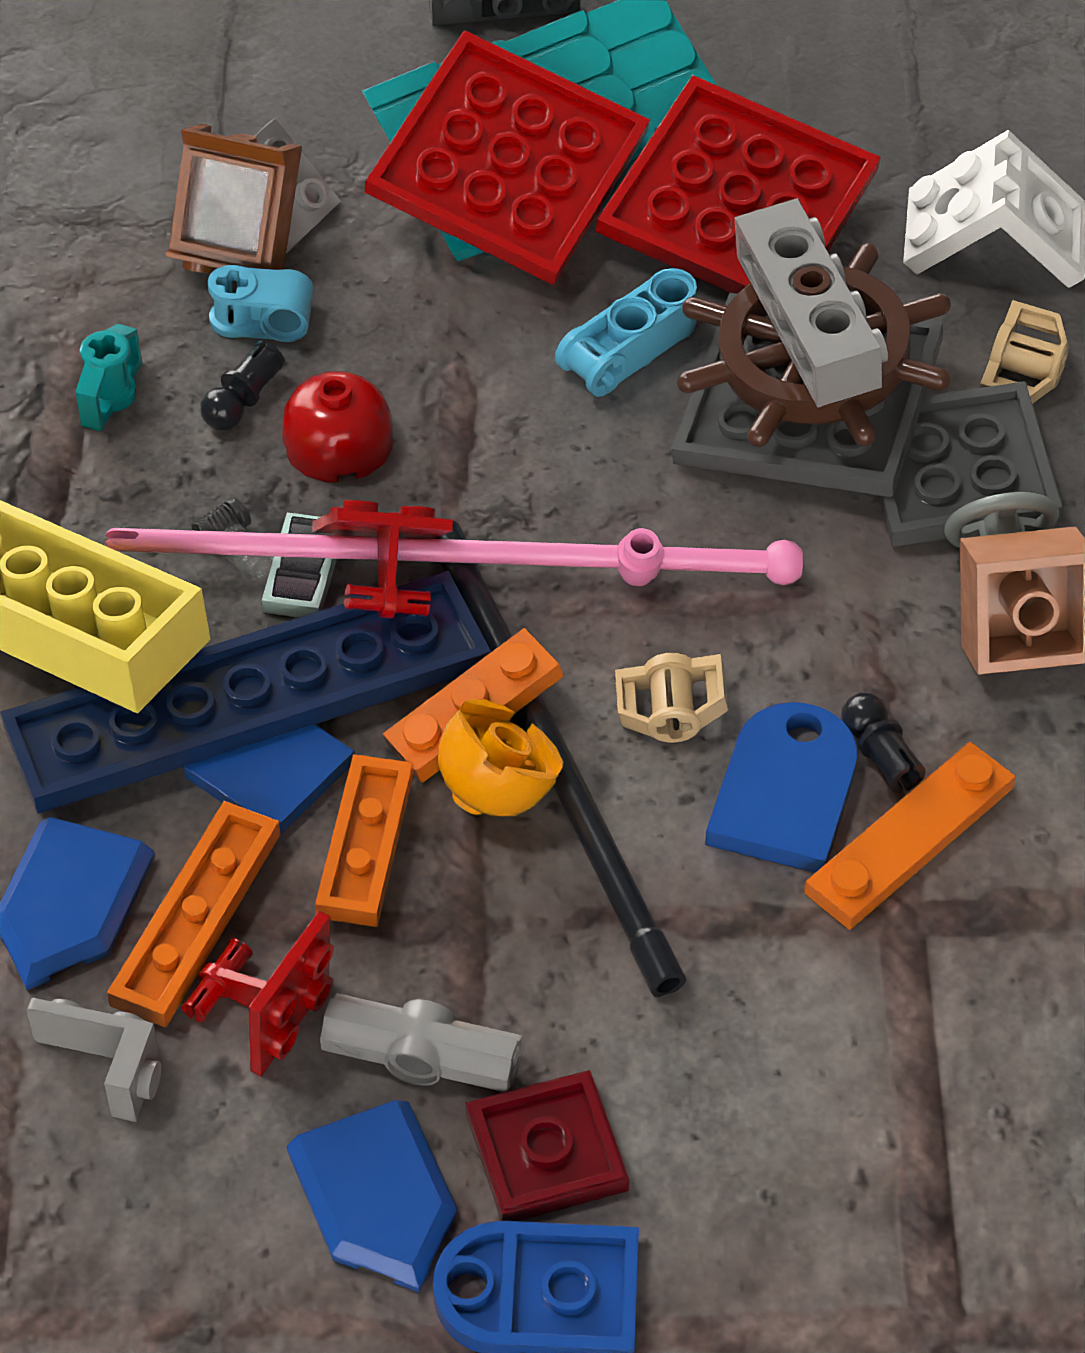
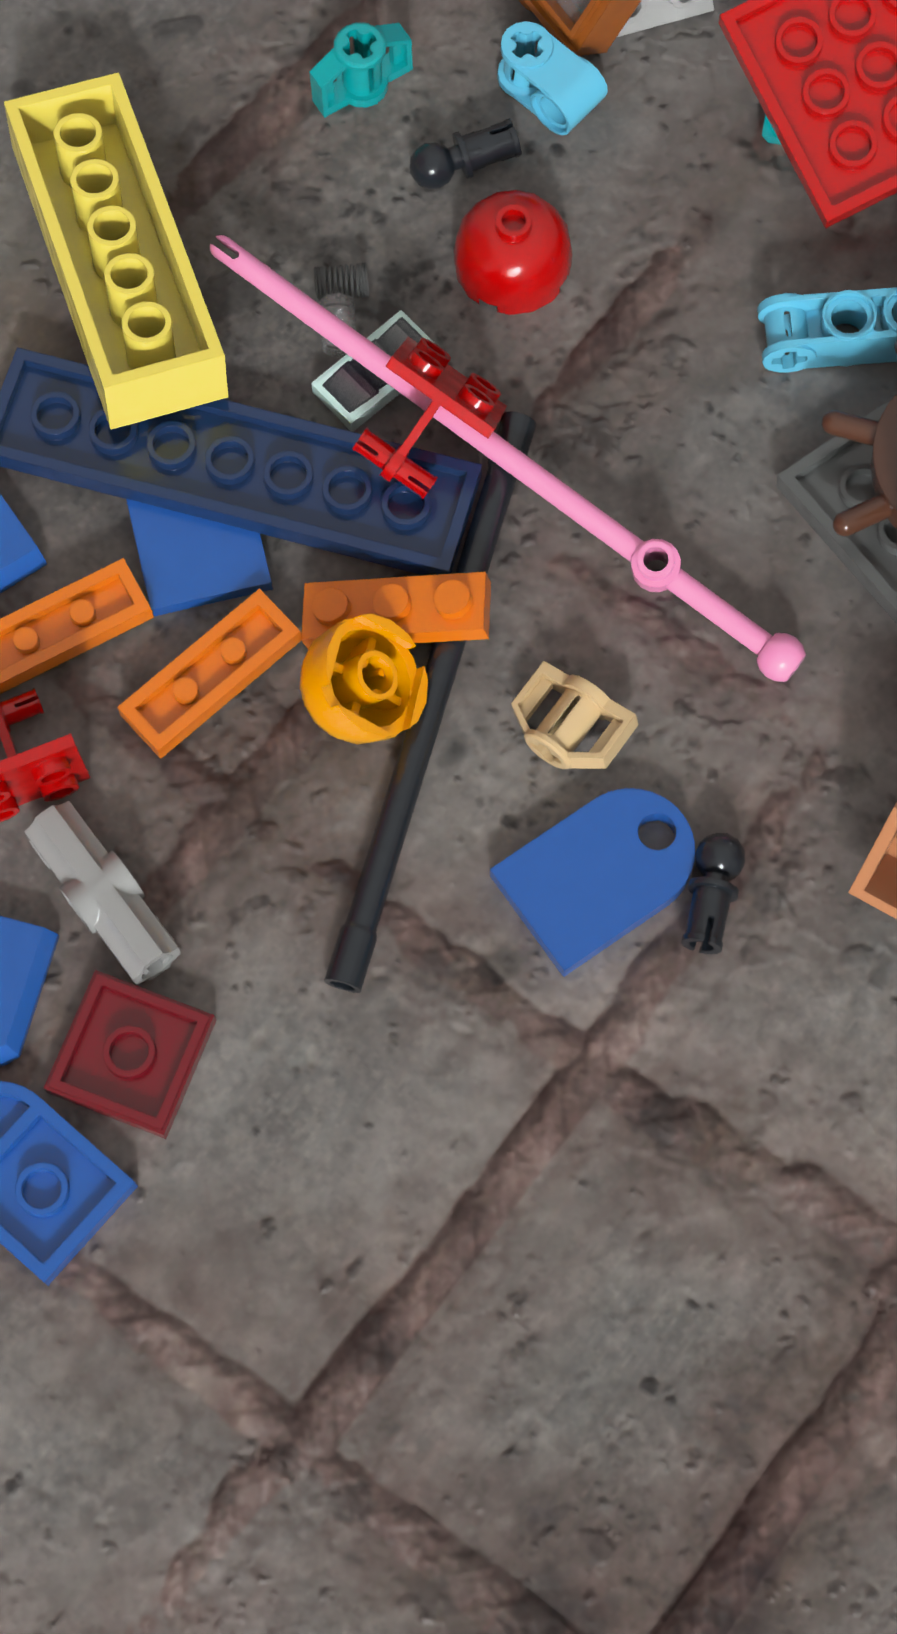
camera: 40 degrees right, 20 degrees up
(909, 835) = (663, 997): orange plate -> none

